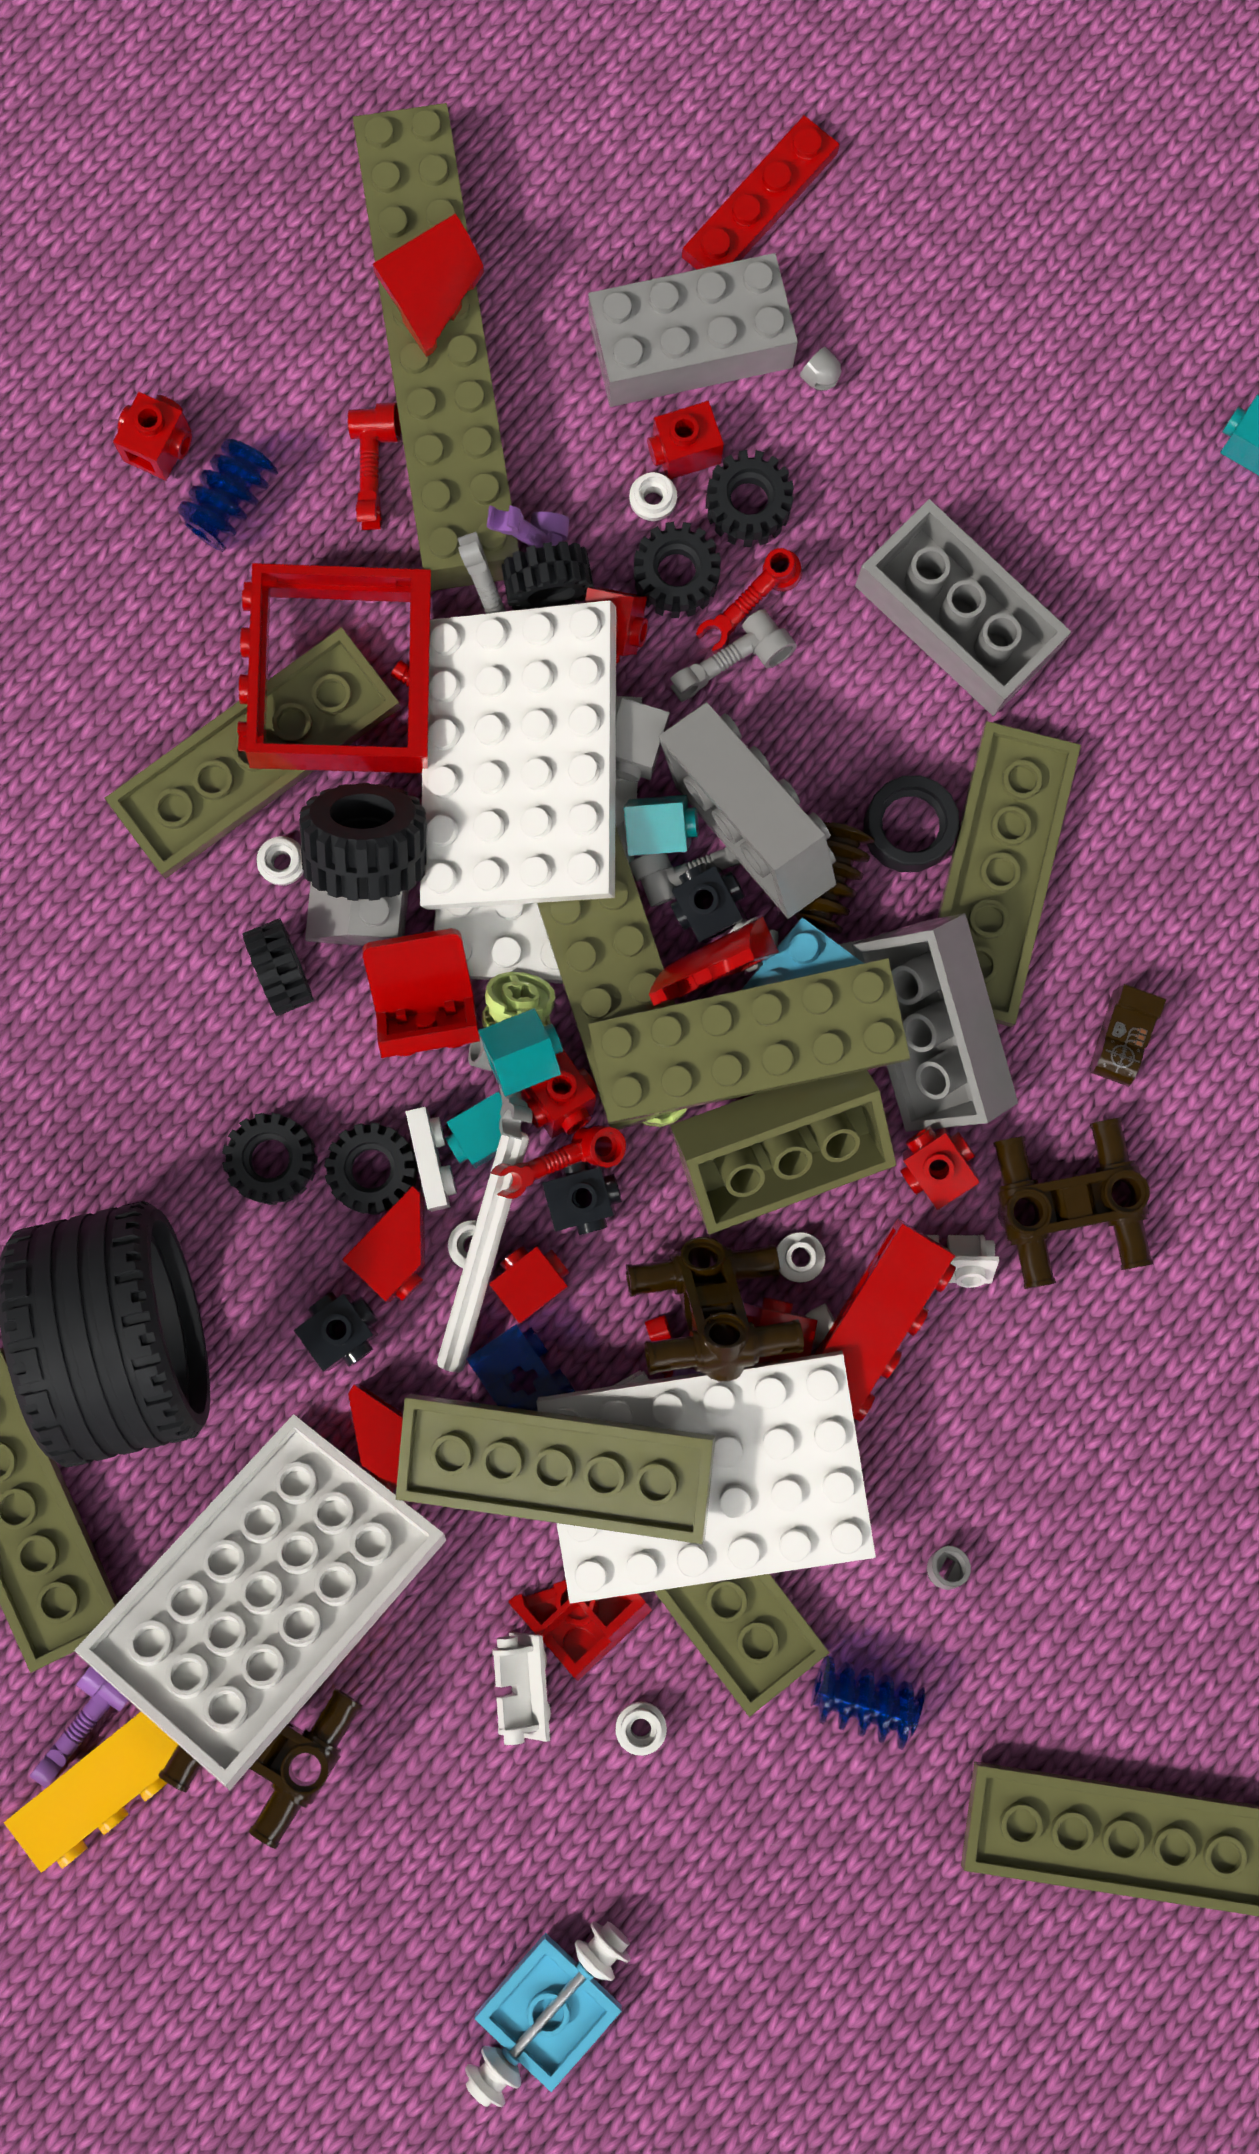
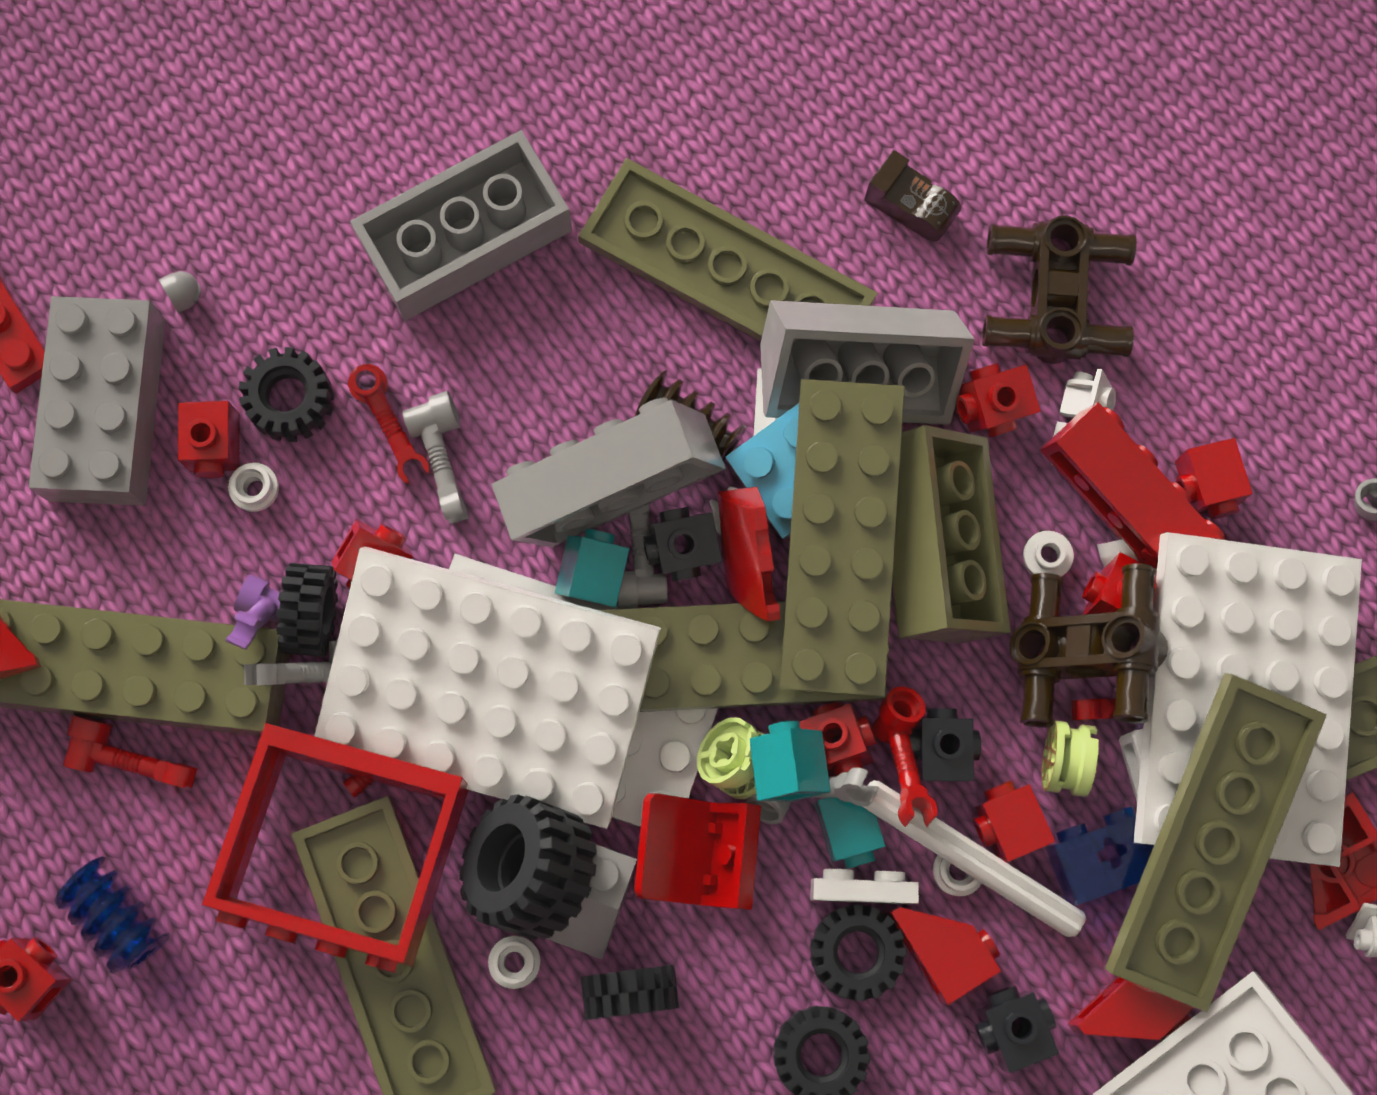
camera: 70 degrees left, 5 degrees down
(604, 1326) = (1069, 759): none -> yellowish green wheel
(638, 739) = (503, 561): light grey brick -> none
(685, 543) = (316, 463): black tyre -> none
(921, 1399) = (1214, 478): none -> red brick
(924, 789) = (656, 298): black tyre -> none

